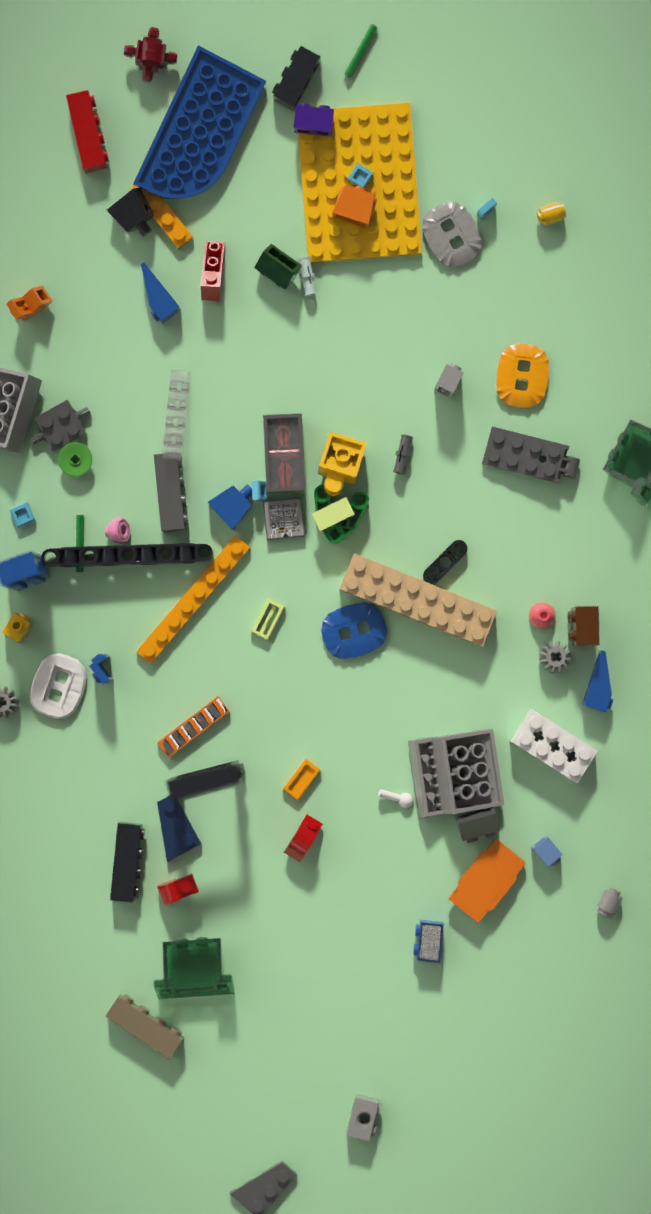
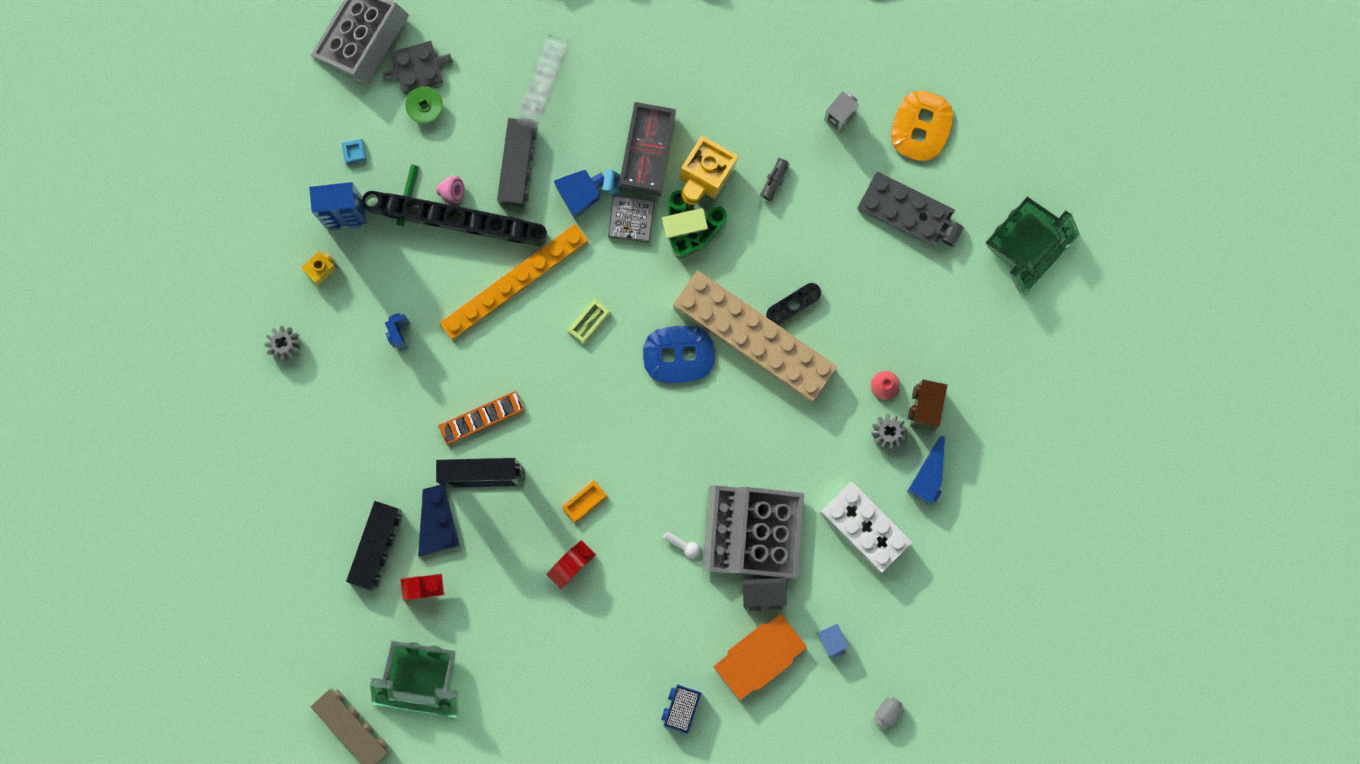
camera: 15 degrees right, 5 degrees down
(45, 681) = (359, 350): white piece -> none

